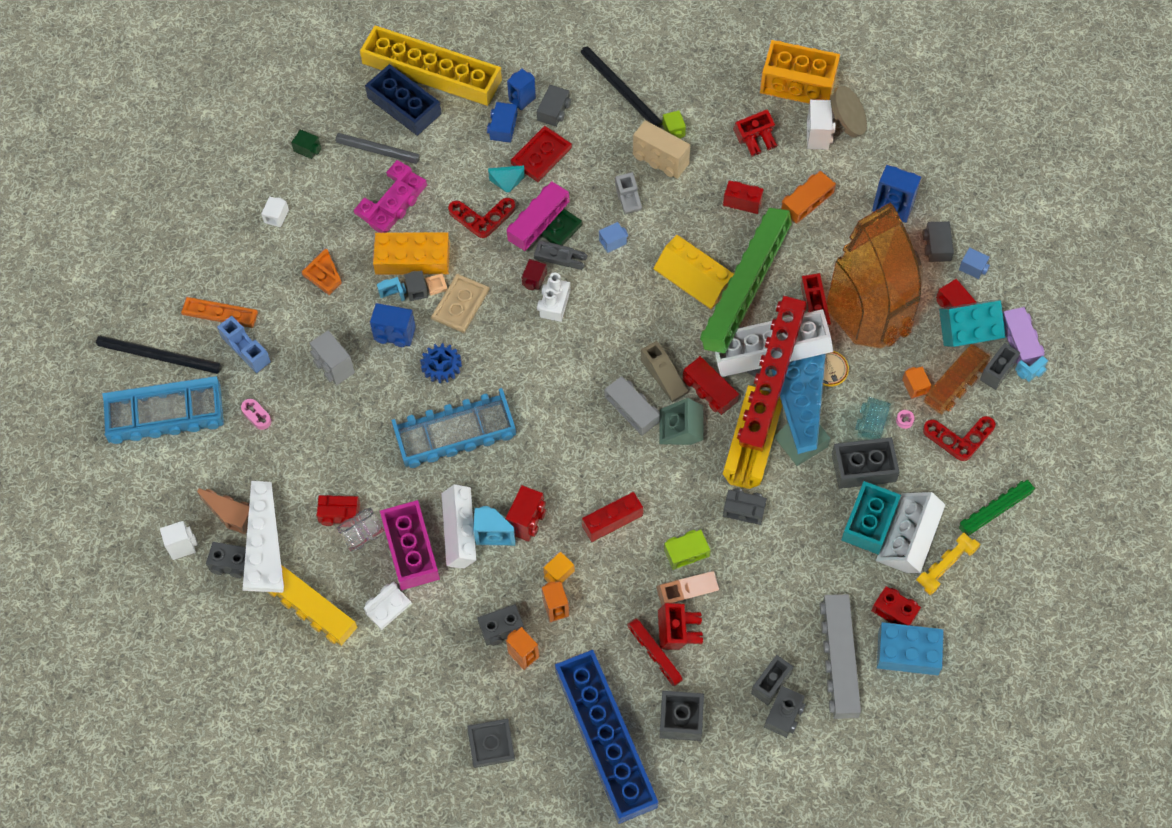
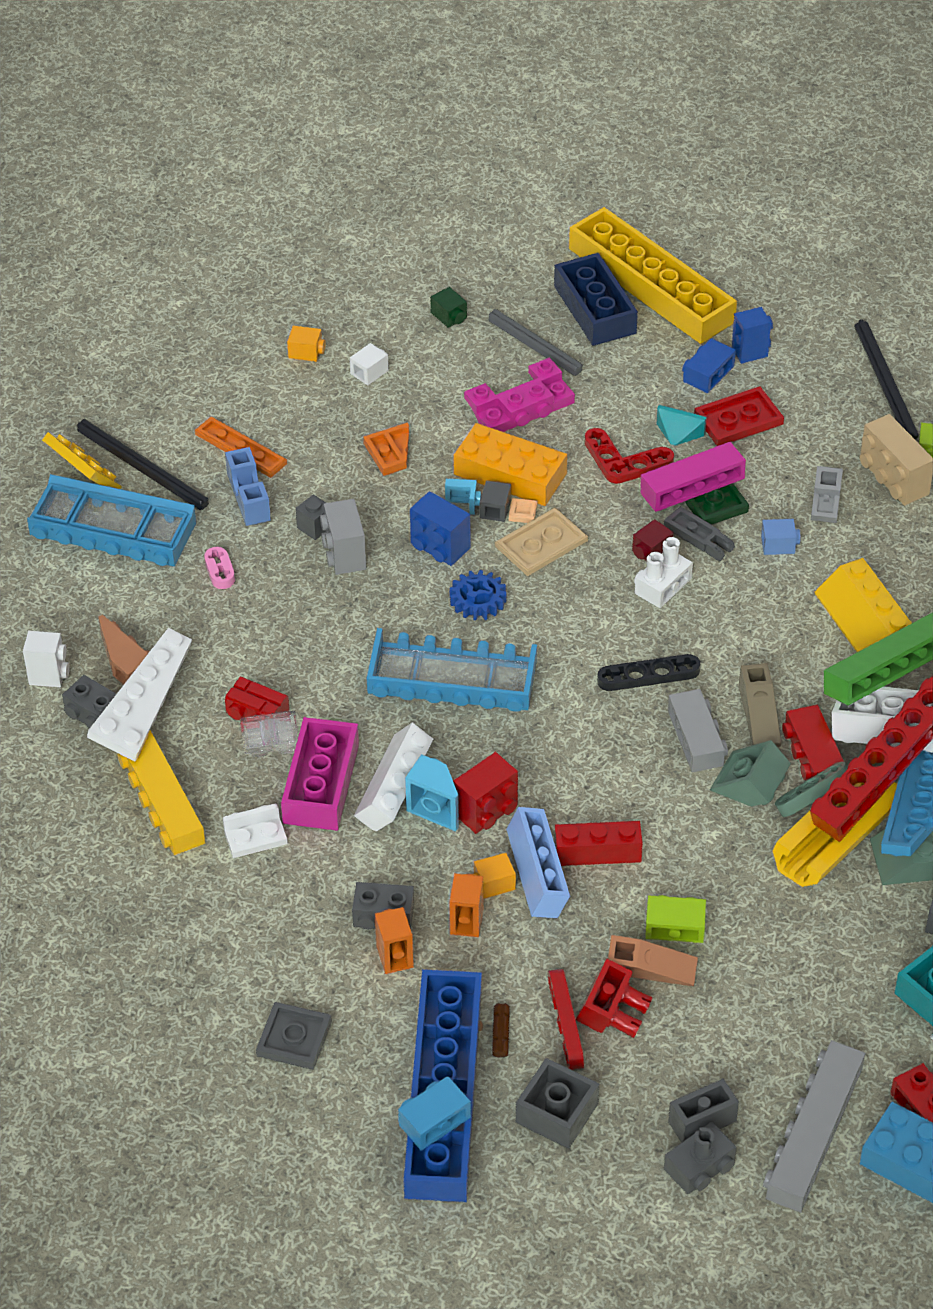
camera: 25 degrees right, 15 degrees down
(120, 374) = (75, 455): none -> yellow plate
(222, 212) = (305, 343): none -> light orange brick
(300, 349) = (308, 516): none -> dark grey brick
(553, 105) = (784, 369): dark grey brick -> none
(577, 372) = (647, 669): none -> black beam
(582, 548) = (538, 862): none -> light blue brick
(616, 765) = (434, 1112): none -> dark azure brick
(617, 677) = (501, 1030): none -> reddish brown axle
(719, 427) = (809, 790): none -> sand green beam
(744, 506) = (781, 900): dark grey brick -> none

